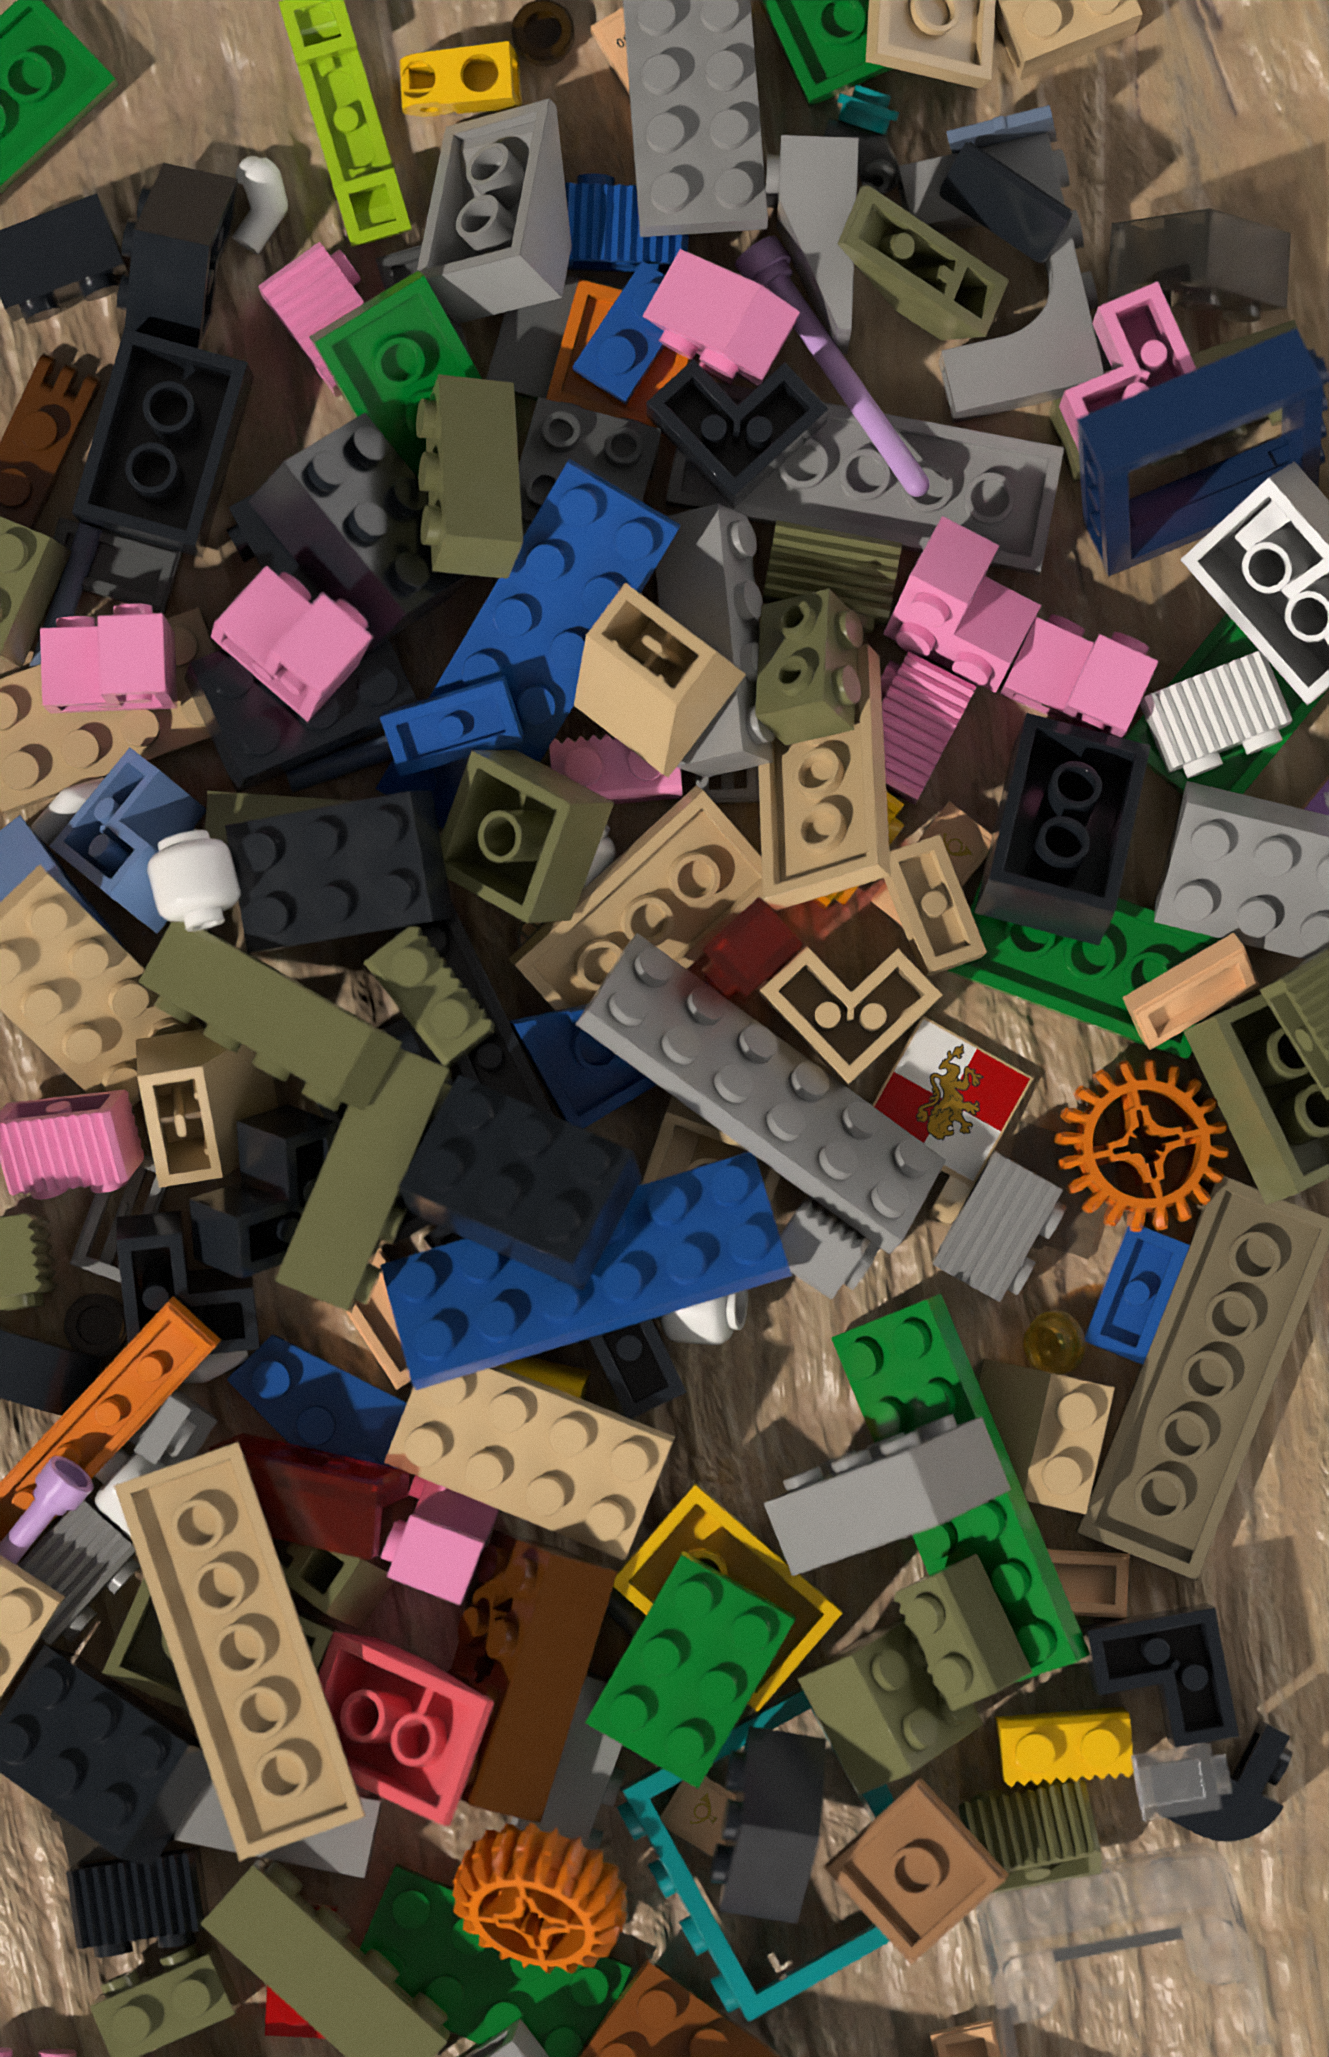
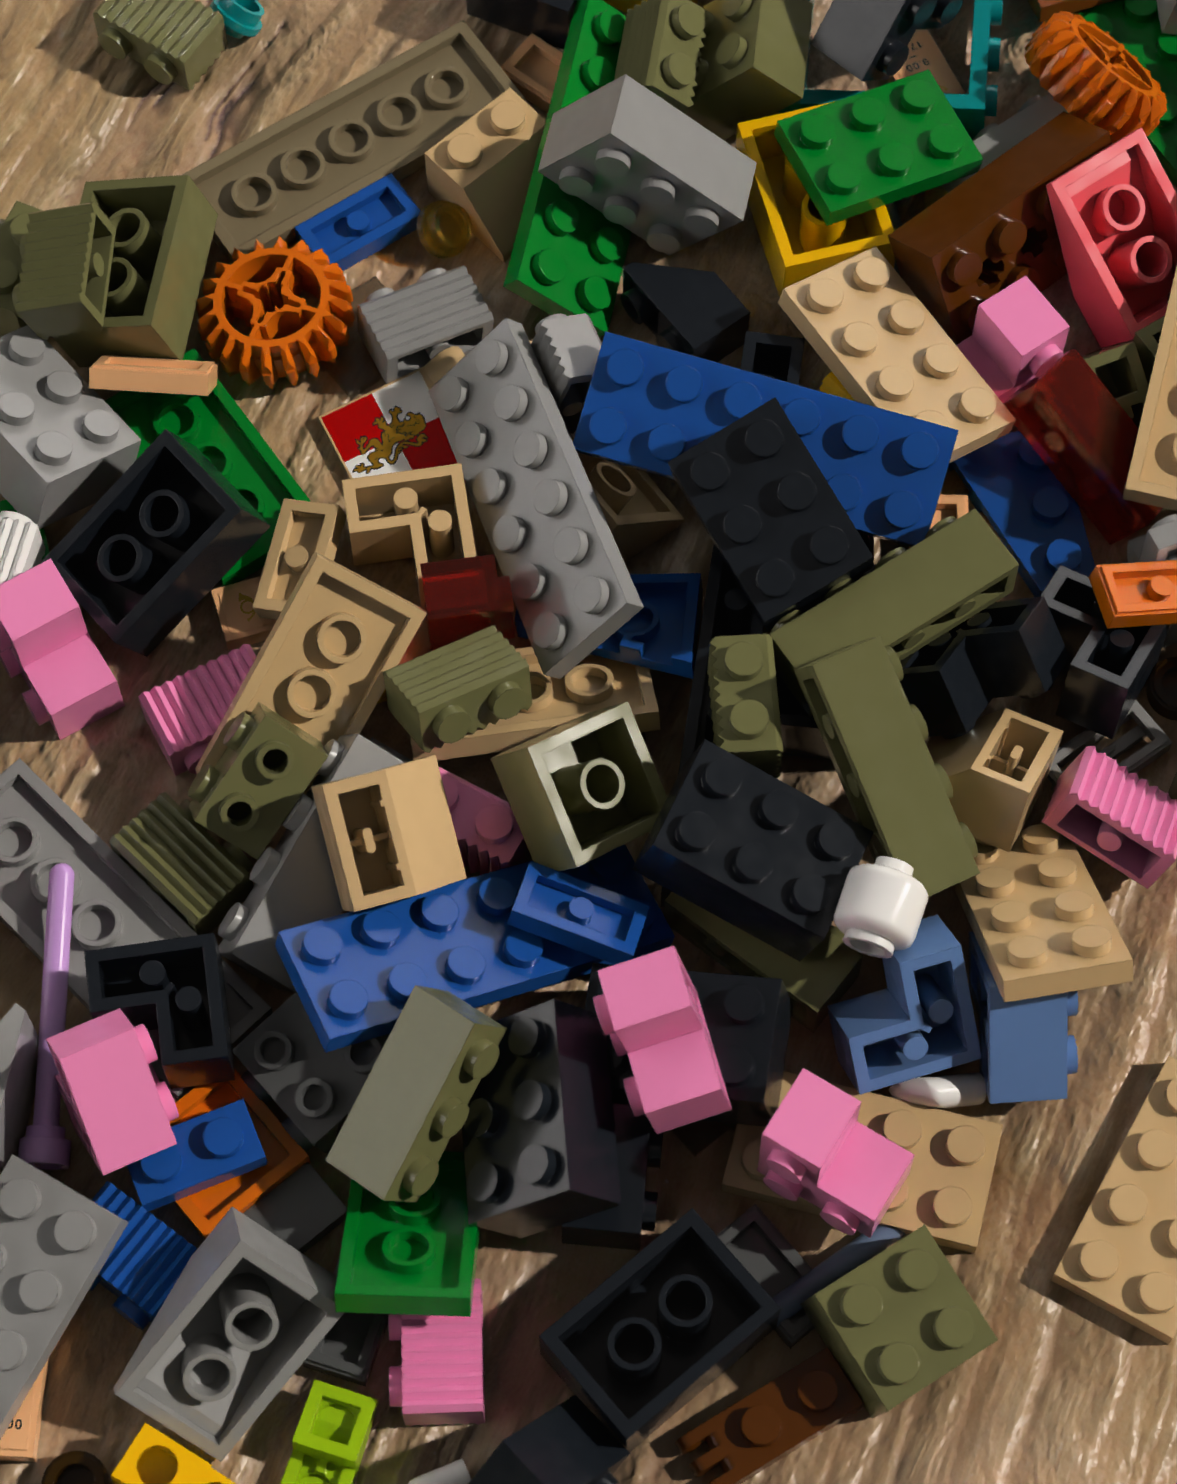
camera: 150 degrees left, 20 degrees down
(695, 863) = (458, 688): none -> olive brick
(767, 1405) = (685, 309): none -> black slope
(958, 612) = (103, 759): bright pink brick -> none

